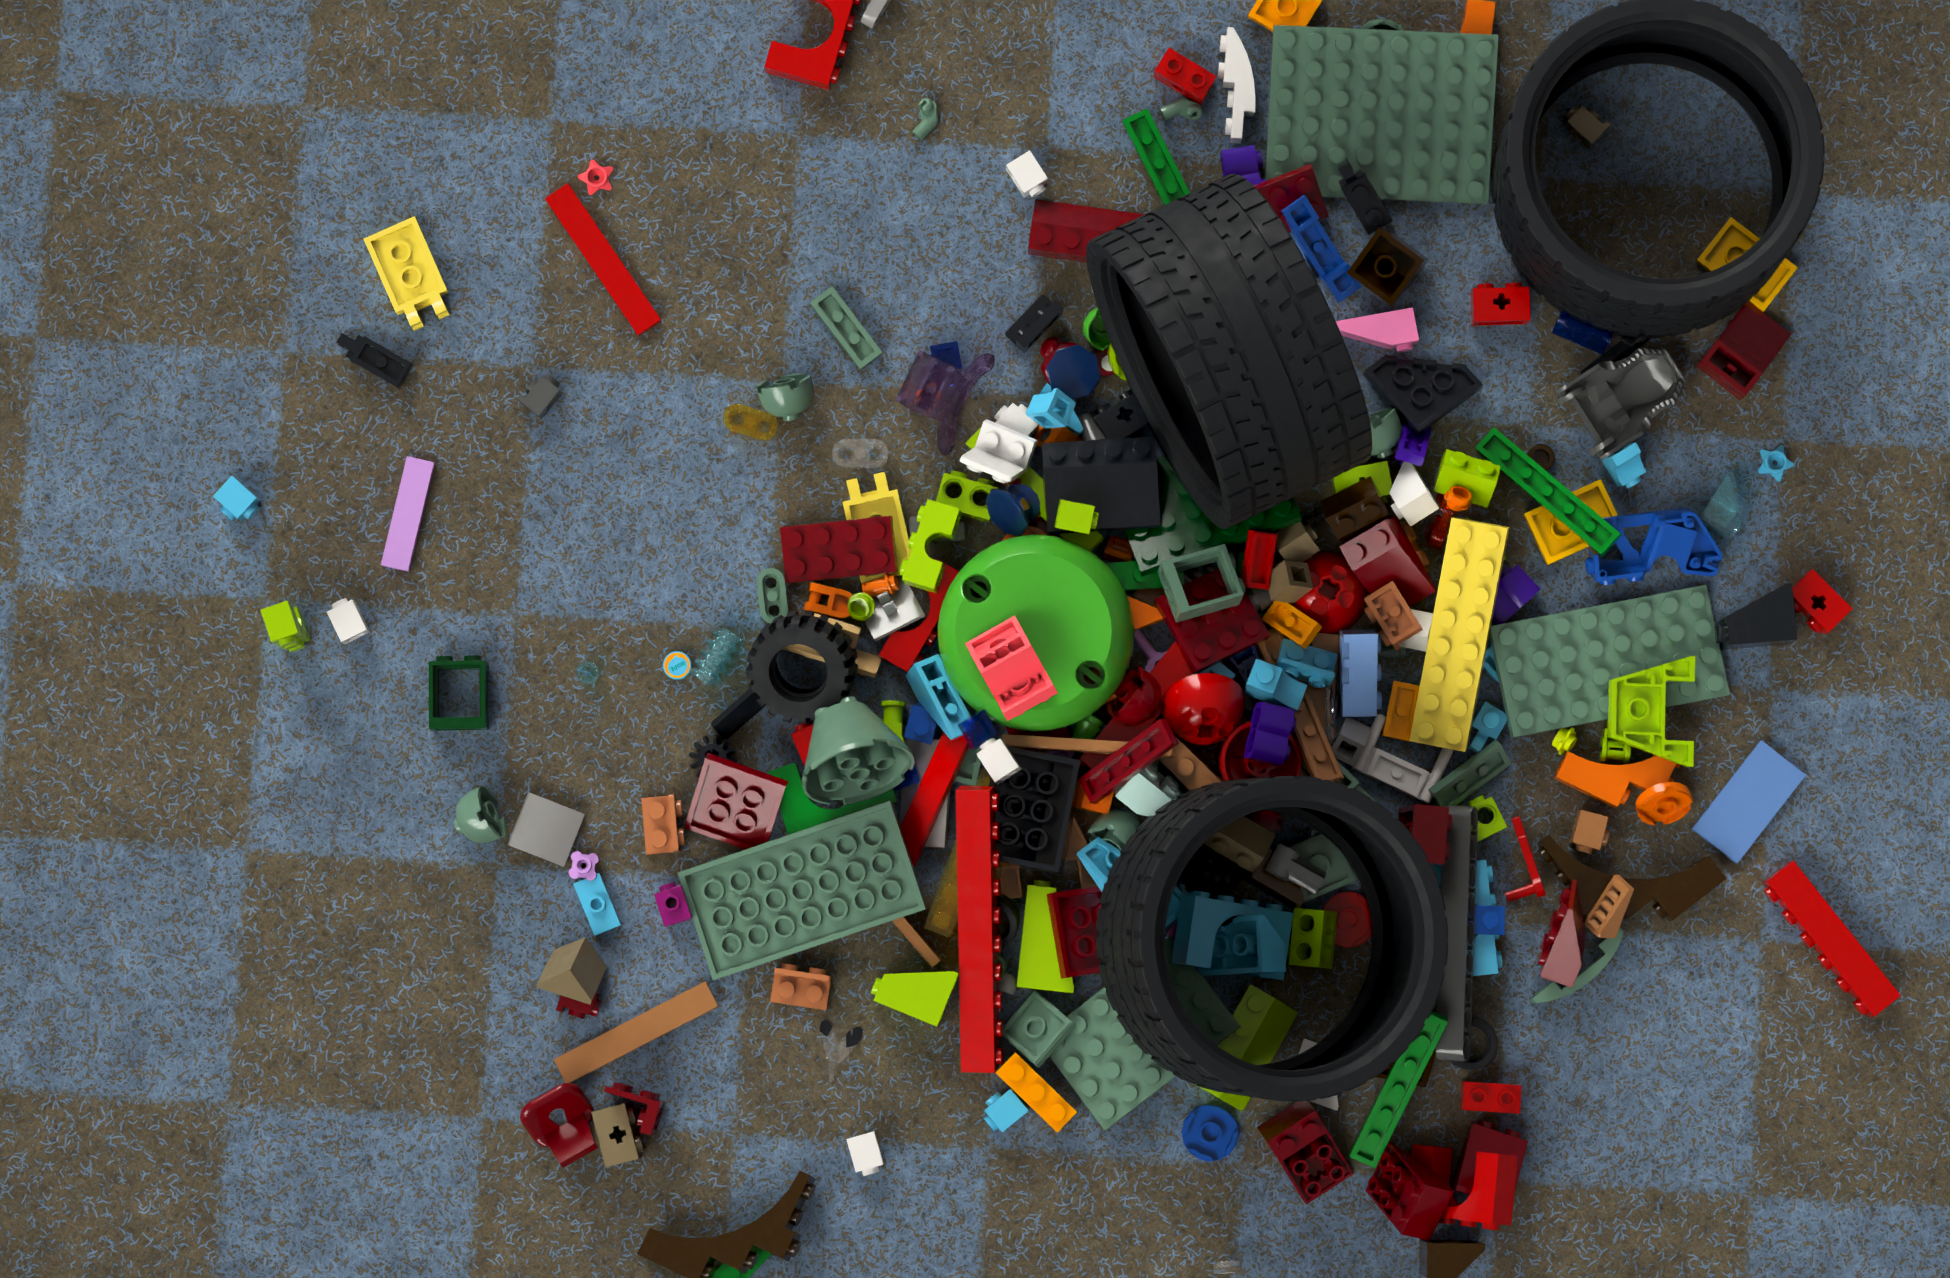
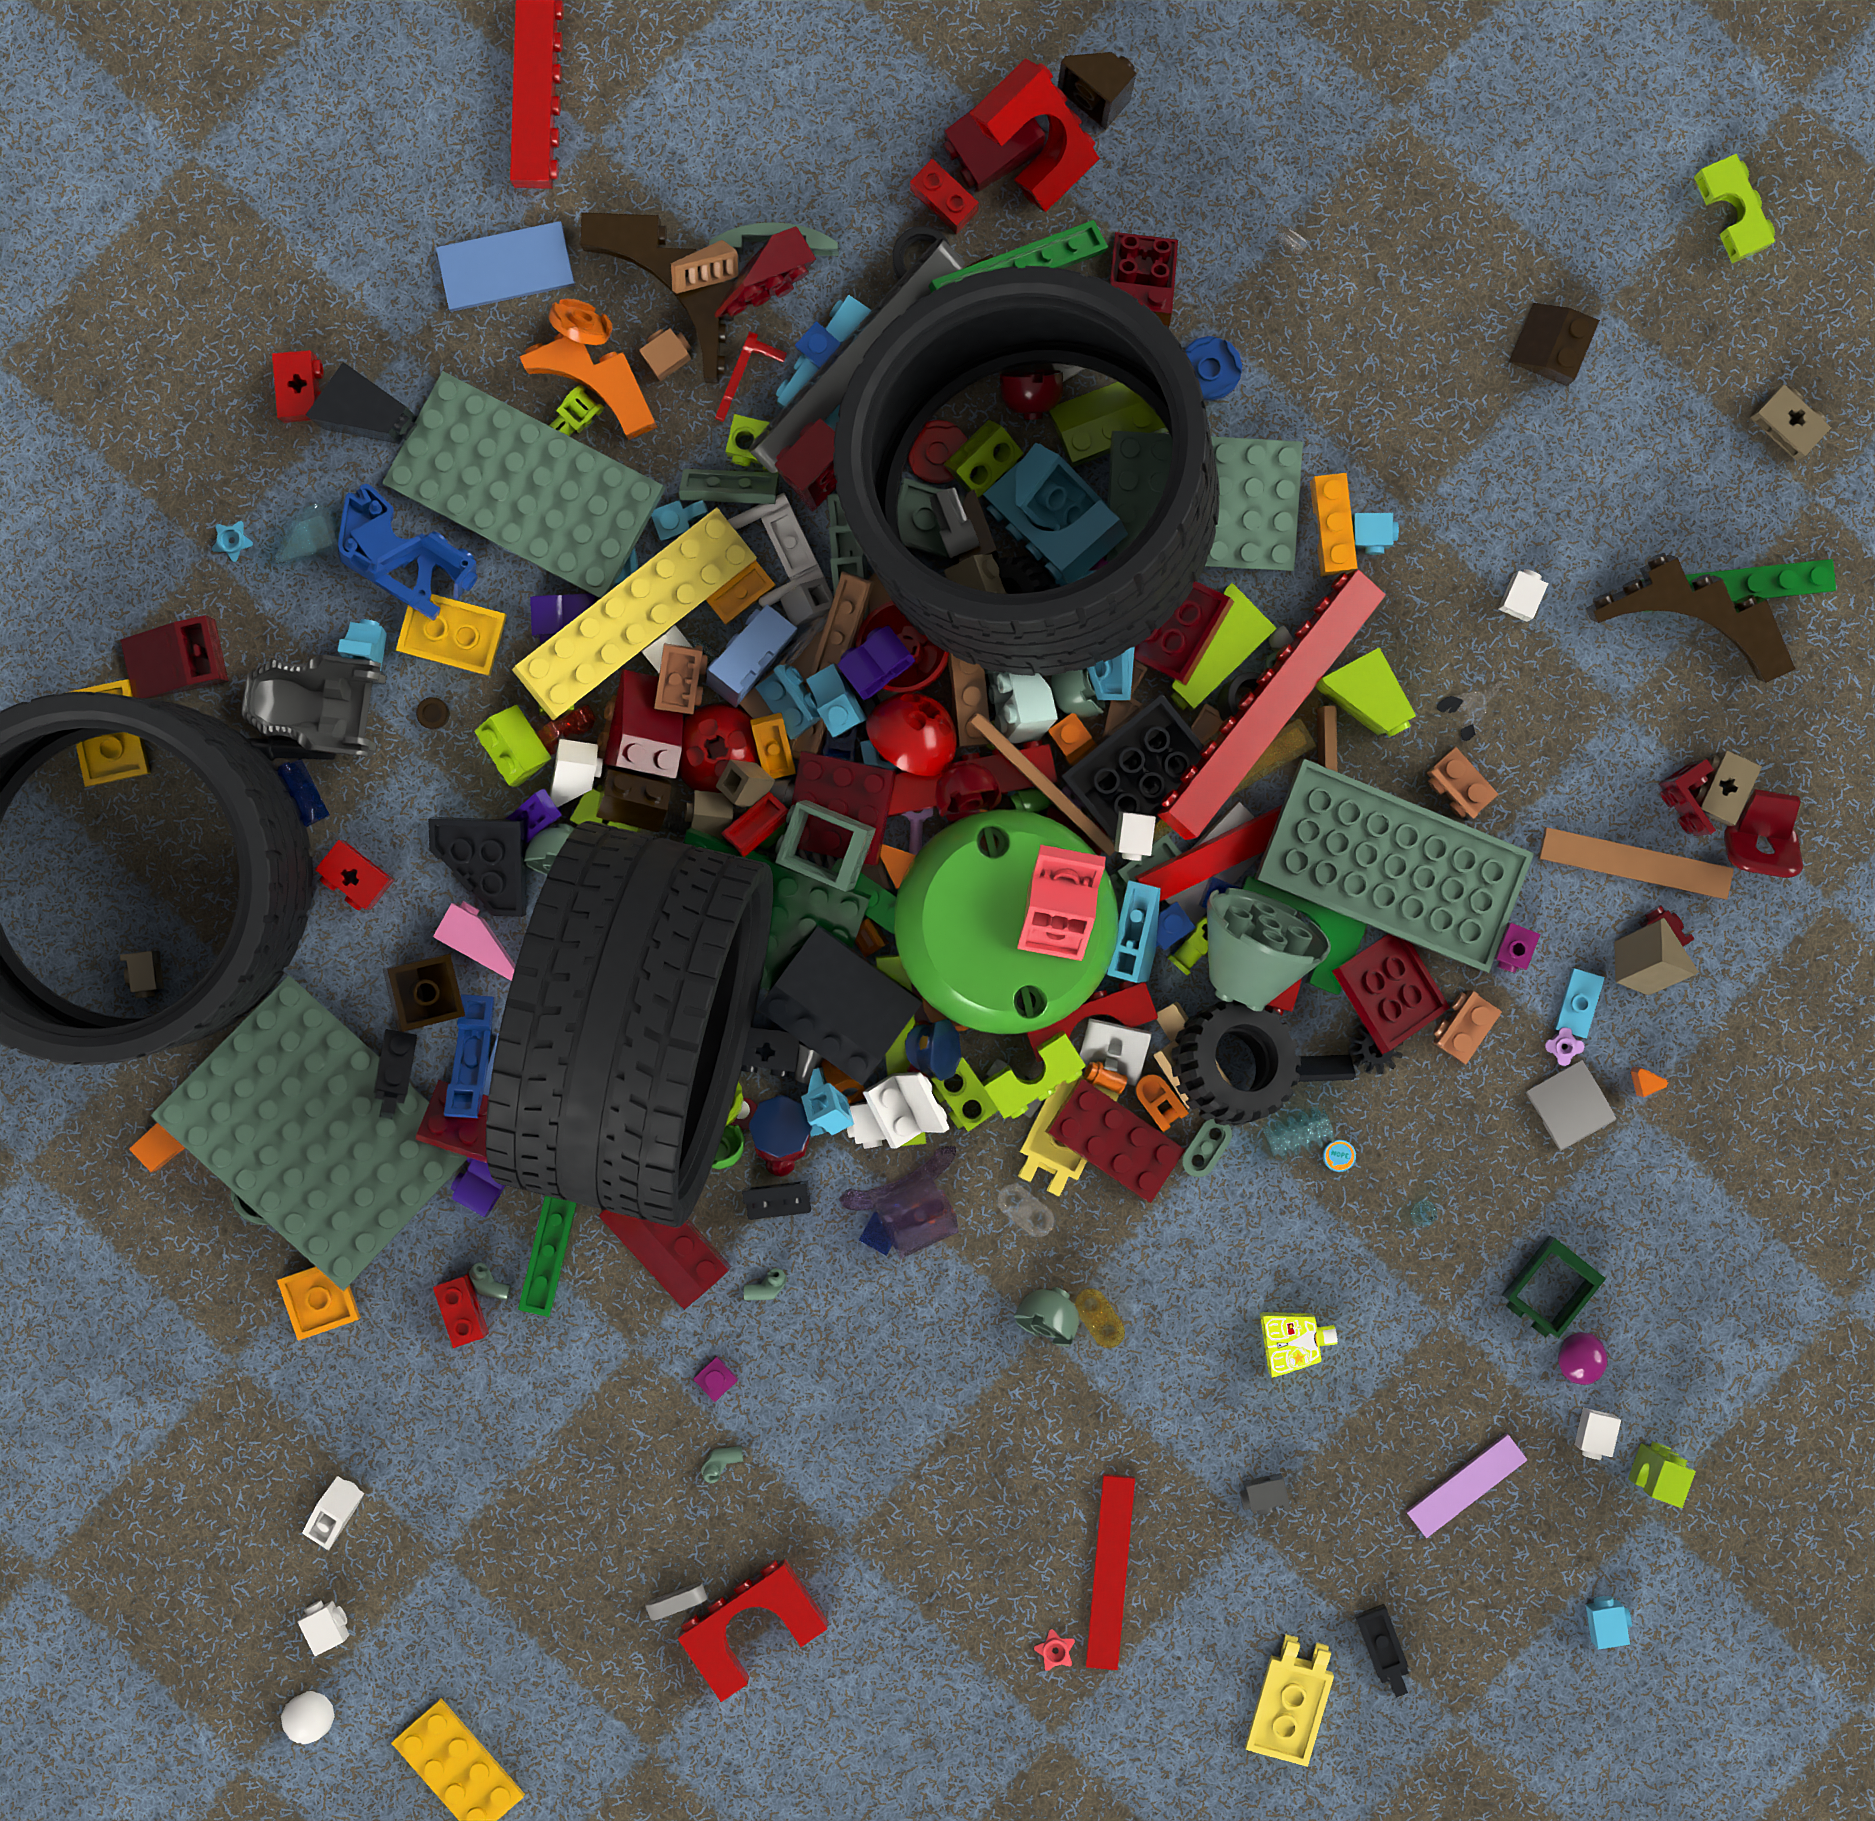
camera: 140 degrees left, 5 degrees up
(397, 664) = (1582, 1358): none -> magenta hair
(478, 817) = (1623, 1164): sand green cylinder -> none
(507, 887) = (1646, 1081): none -> orange slope
(606, 514) = (1293, 1341): none -> neon yellow torso
(846, 328) = (946, 1332): sand green plate -> none
(861, 606) = (1138, 1073): lime plate -> none
(975, 171) = (715, 1379): none -> magenta plate
(977, 729) = (1129, 877): clear blue plate -> none
(990, 259) = (768, 1289): none -> sand green arm
(1027, 175) = (673, 1337): white brick -> none
(1037, 1028) = (1287, 578): sand green tile -> none
(1076, 516) = (887, 993): lime brick -> none
(1128, 761) = (1021, 738): dark red plate -> none
(1236, 74) = (412, 1273): white slope -> none
(1318, 1011) = (1032, 391): none -> dark red cylinder
(1408, 1193) = (1086, 168): dark red slope -> none
(1458, 498) = (535, 731): orange plate -> none
(1548, 492) = (451, 675): green plate -> none
(1564, 740) = (620, 449): neon yellow plate -> none
(1638, 710) = (532, 418): lime wing -> none

